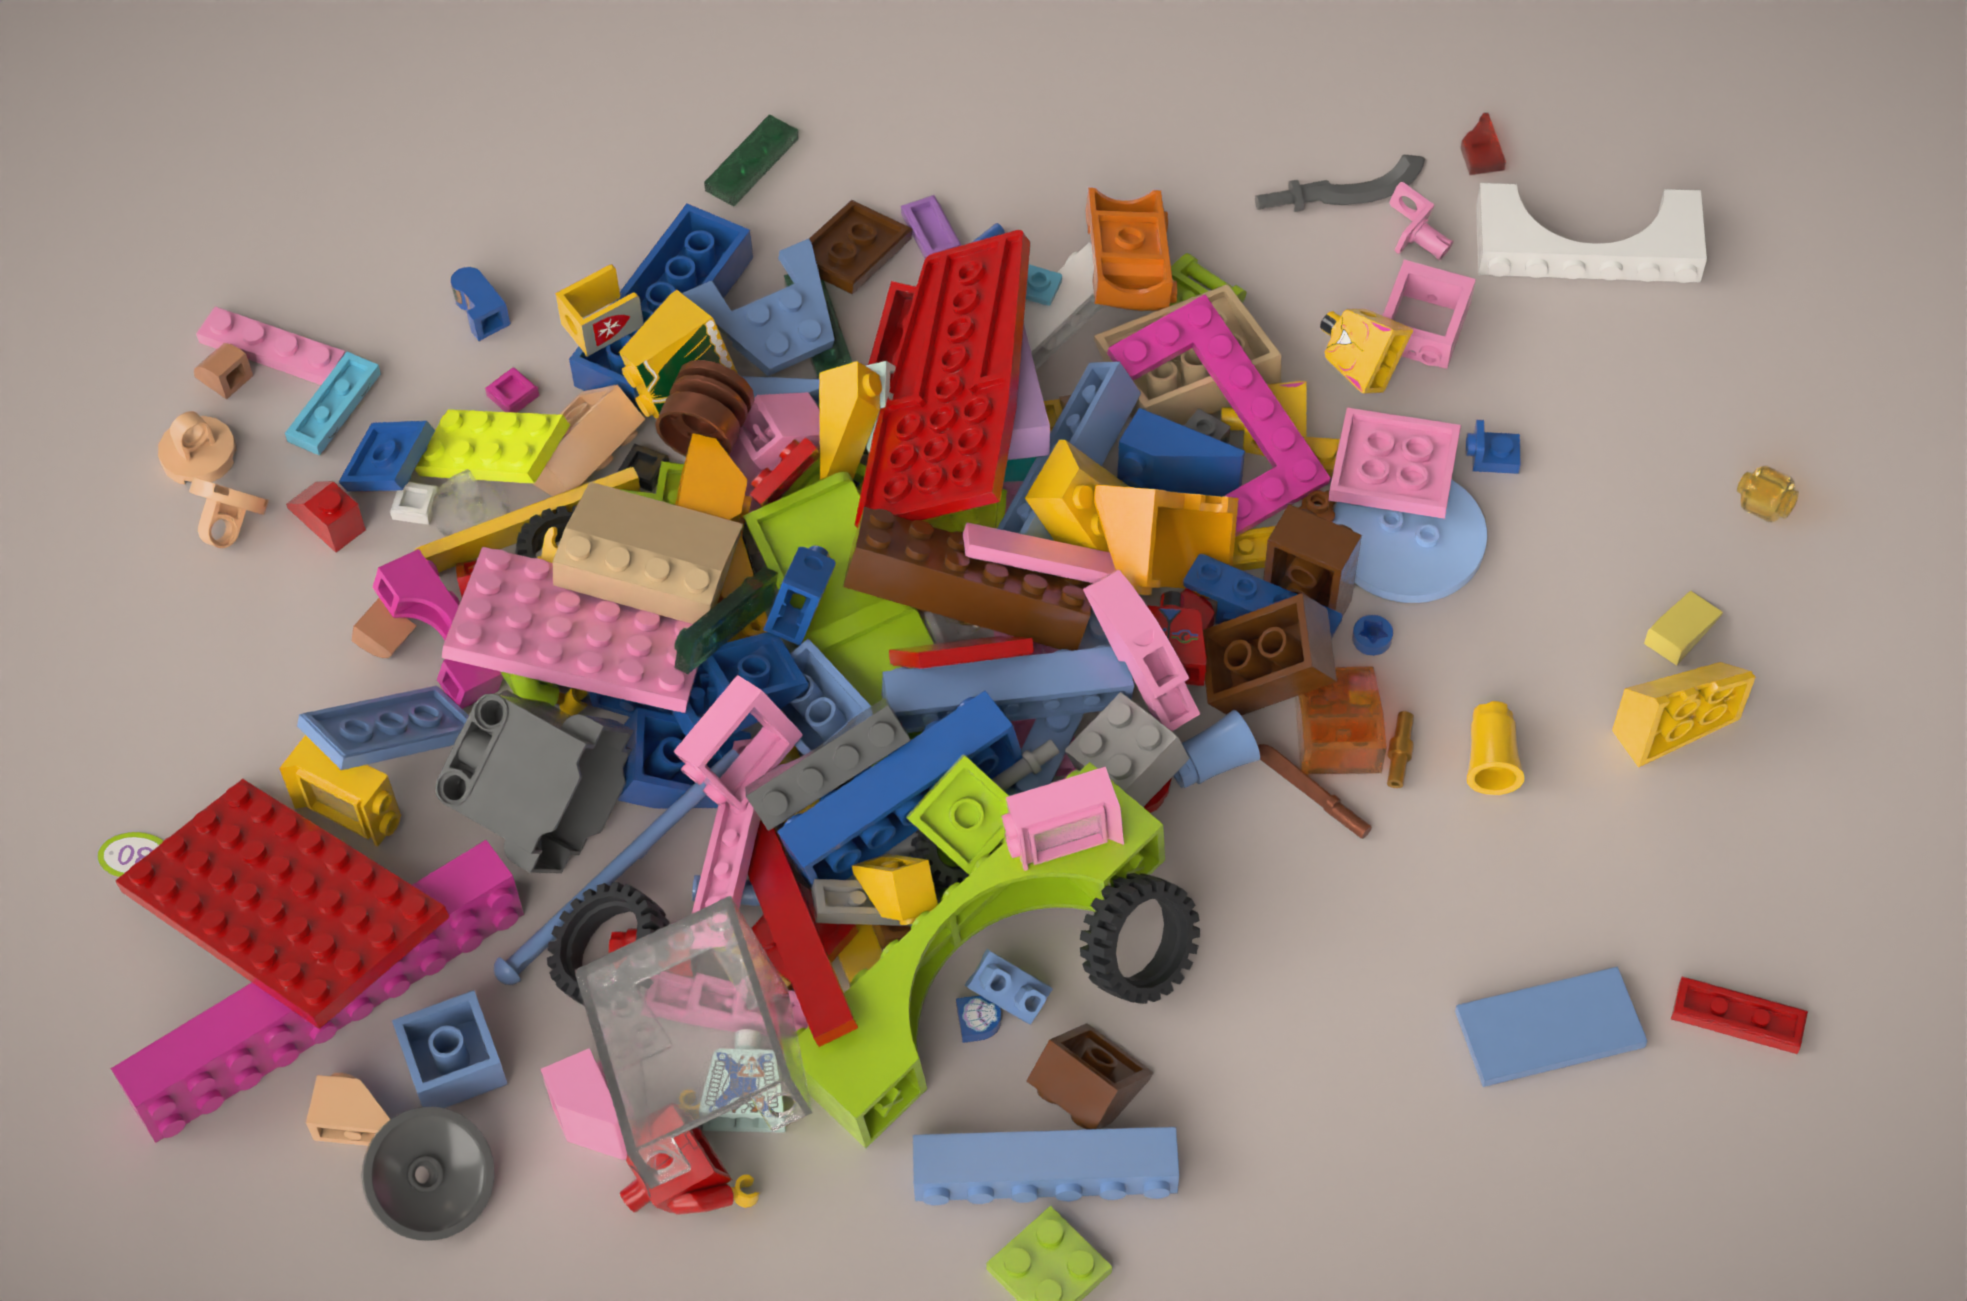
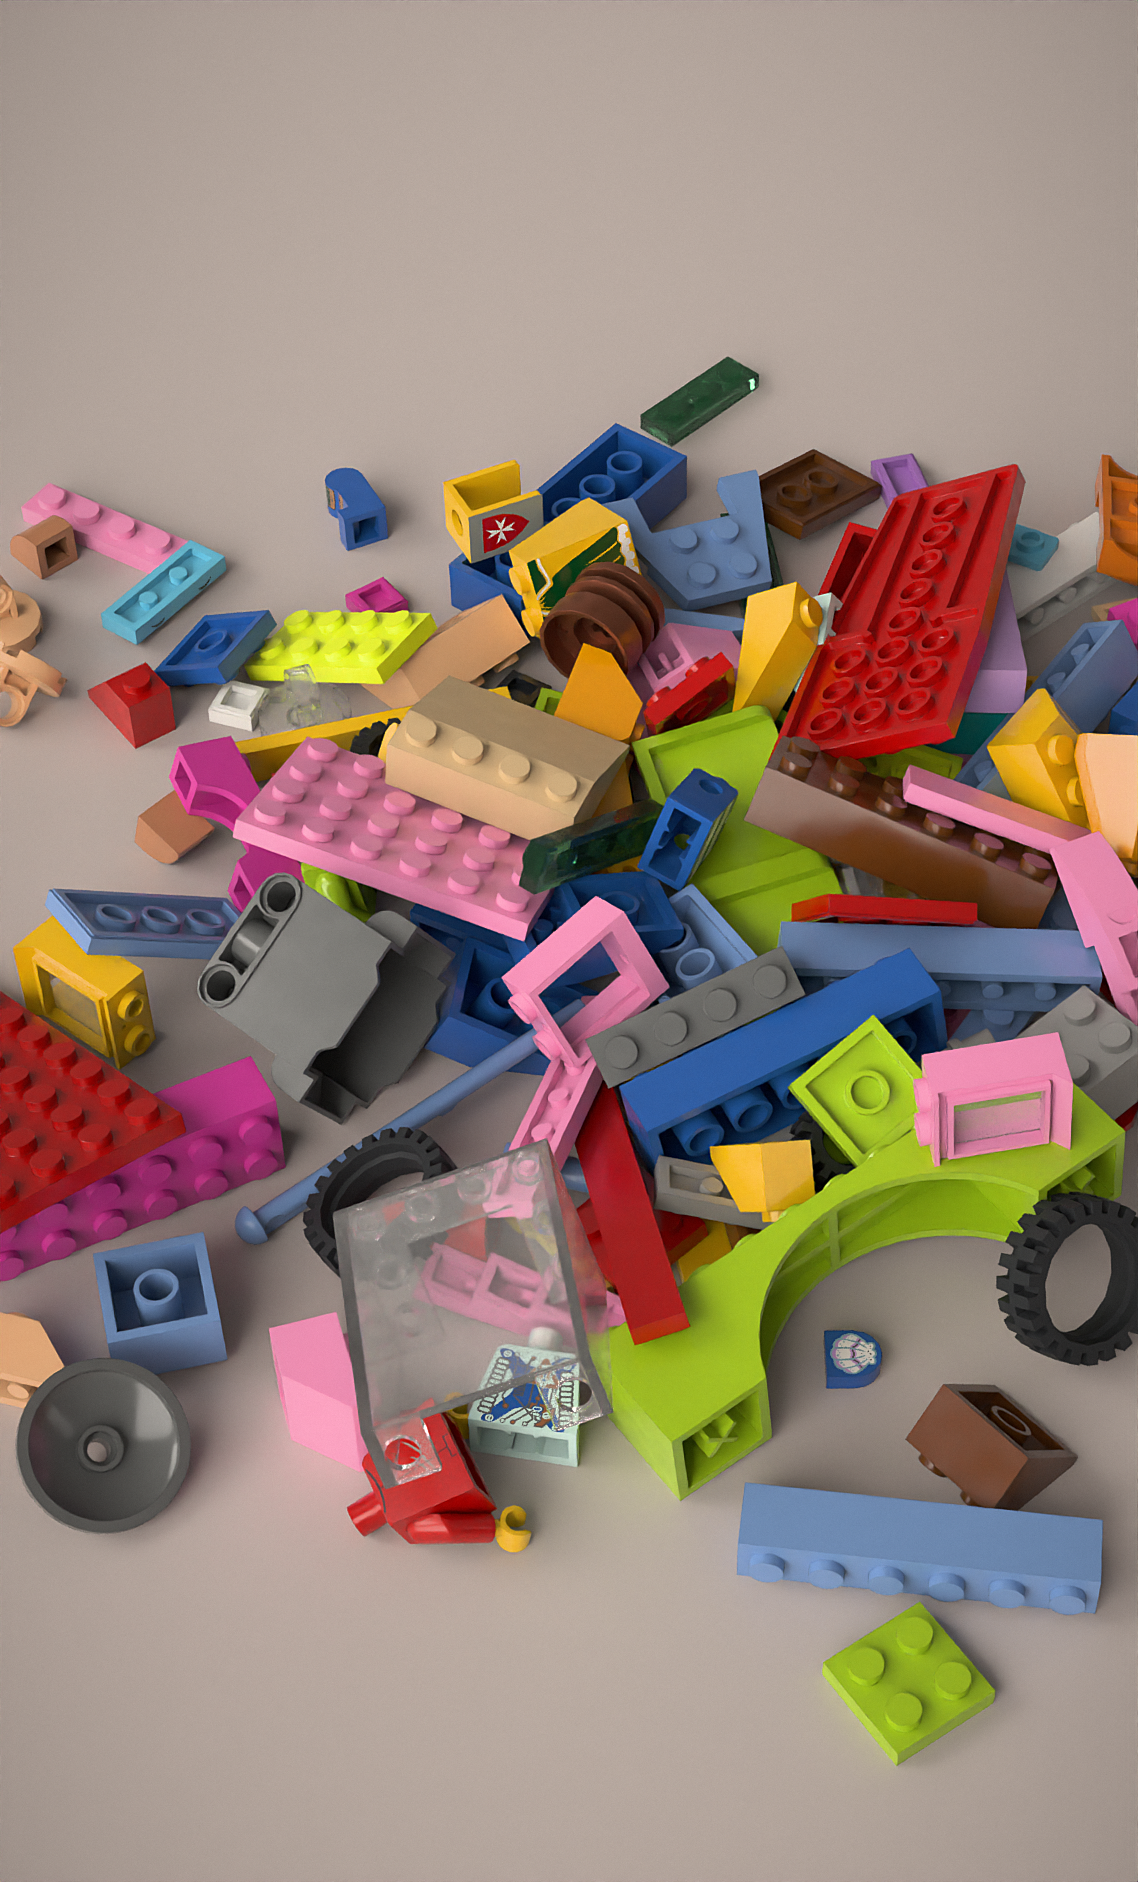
camera: 10 degrees right, 10 degrees down
(1009, 987) = (896, 1321): medium blue hips -> none

